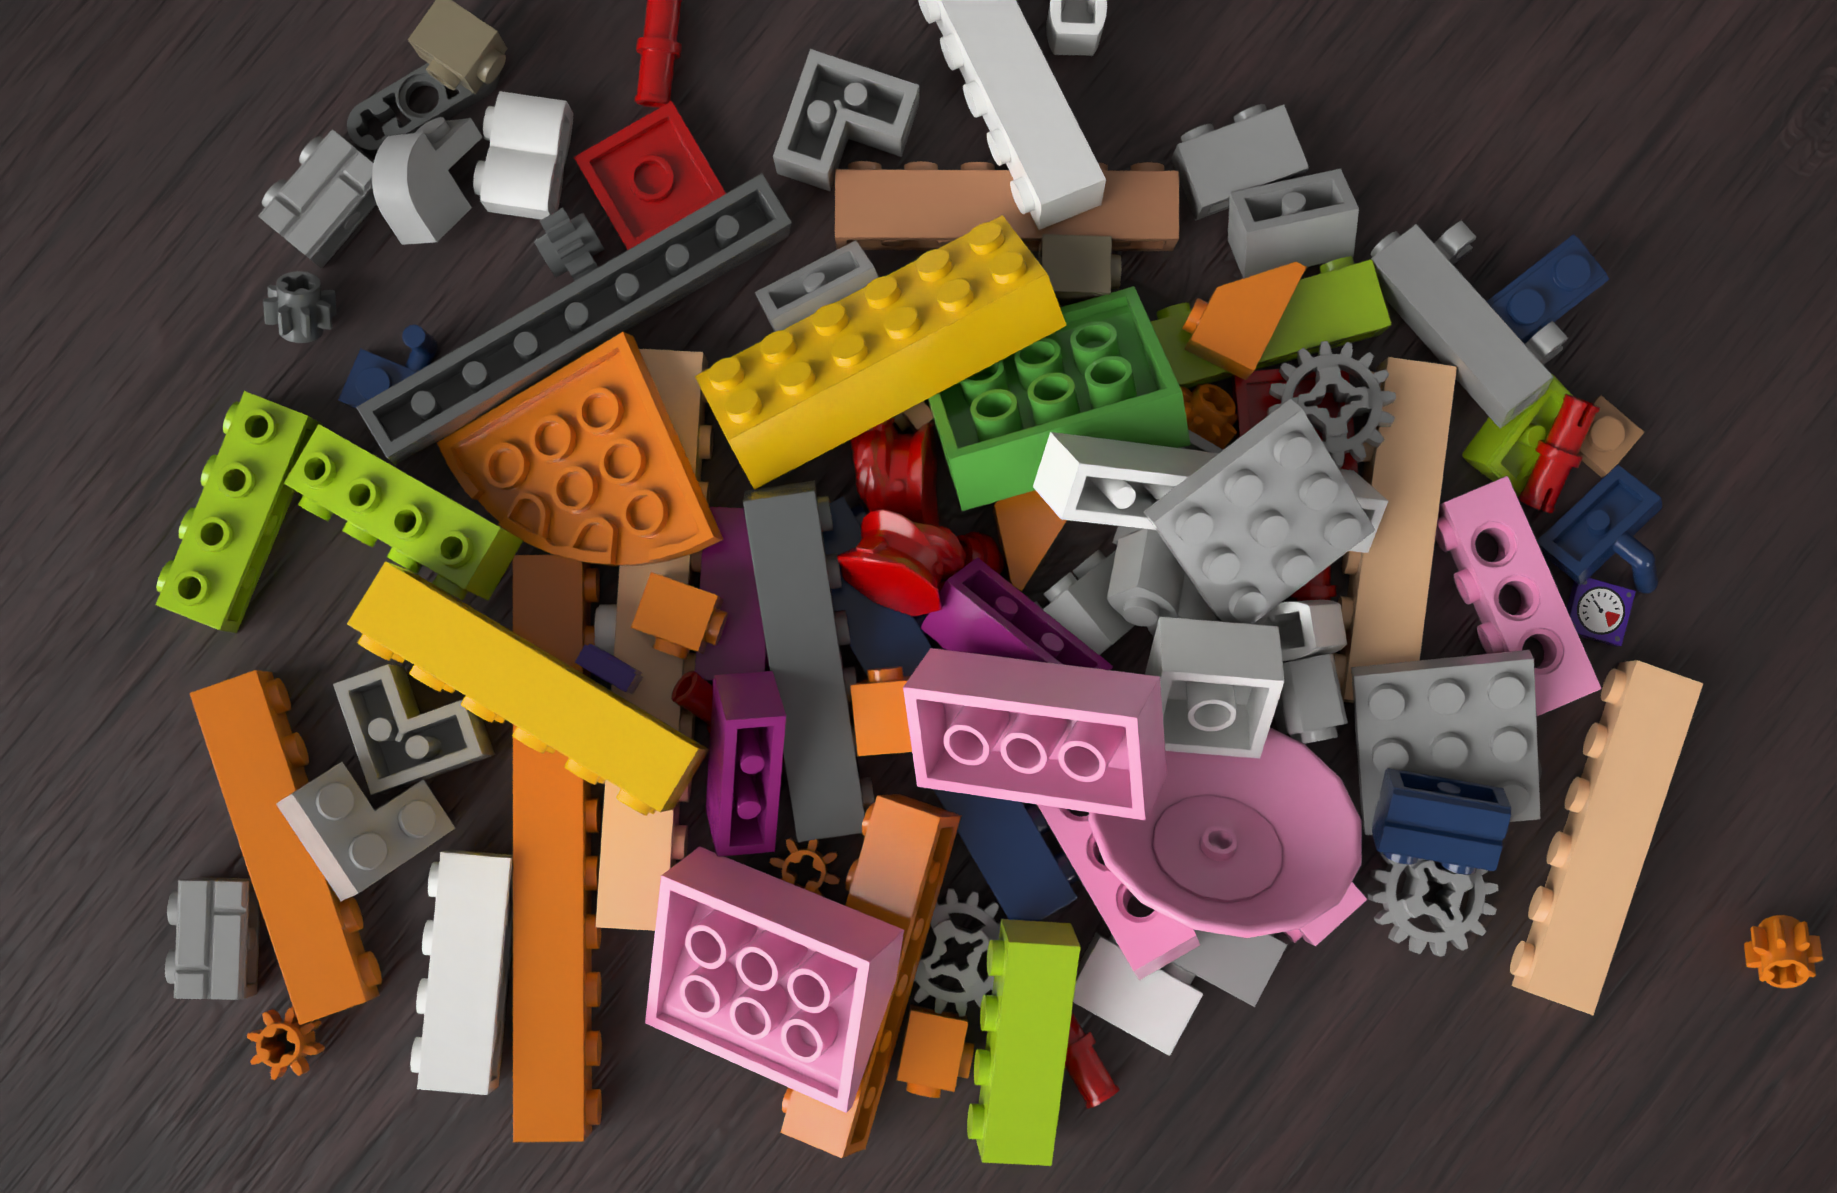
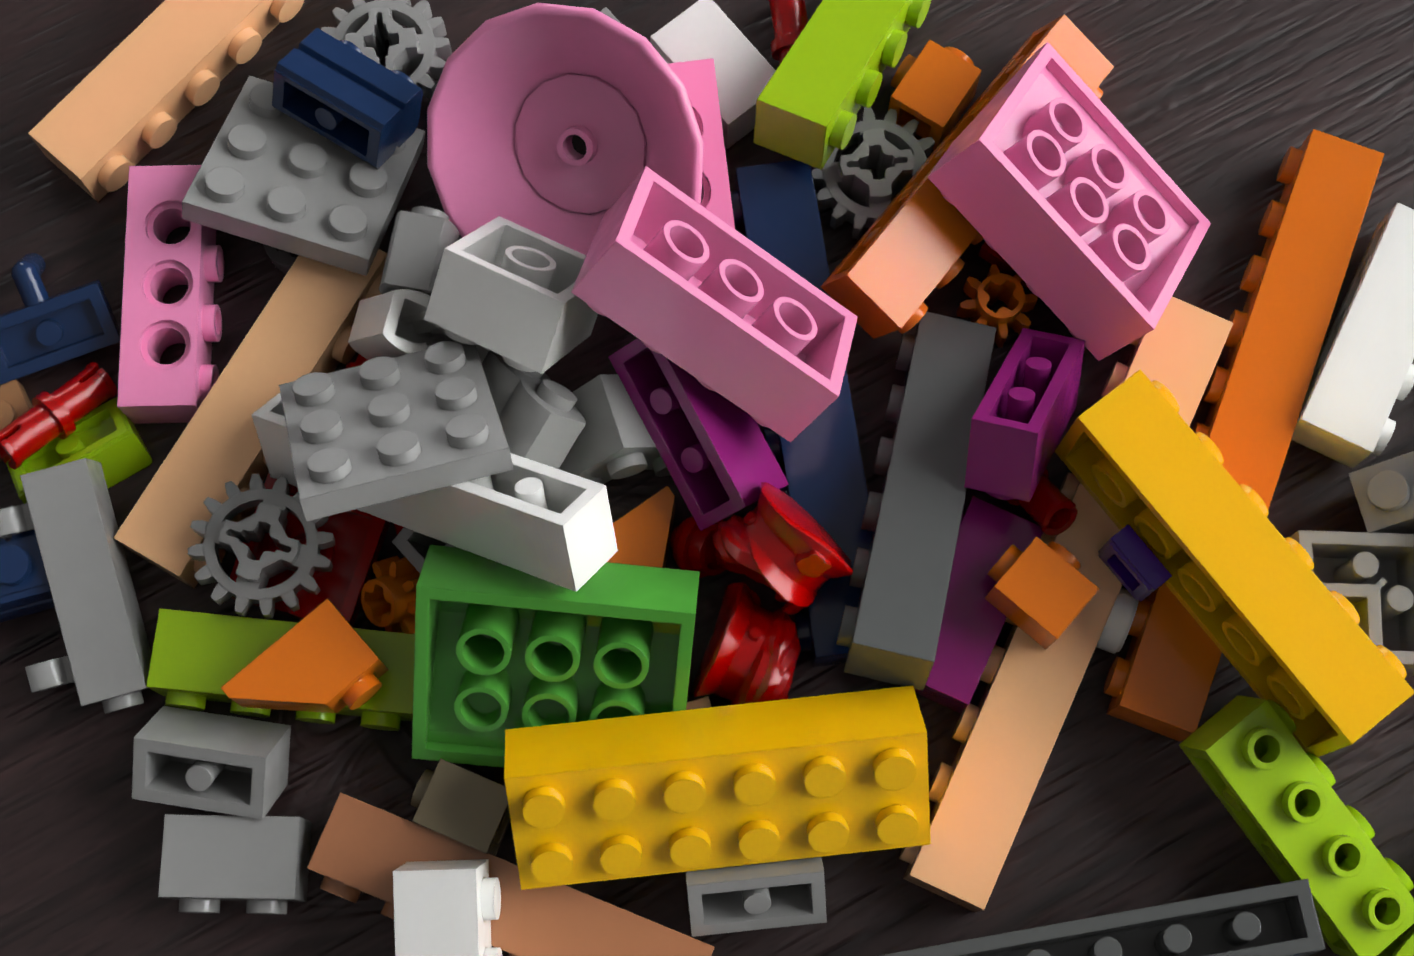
camera: 160 degrees left, 10 degrees down
(587, 465) = (1080, 795): orange plate -> none
(881, 712) = (863, 412): orange brick -> none
(1600, 611) = (91, 252): tile -> none

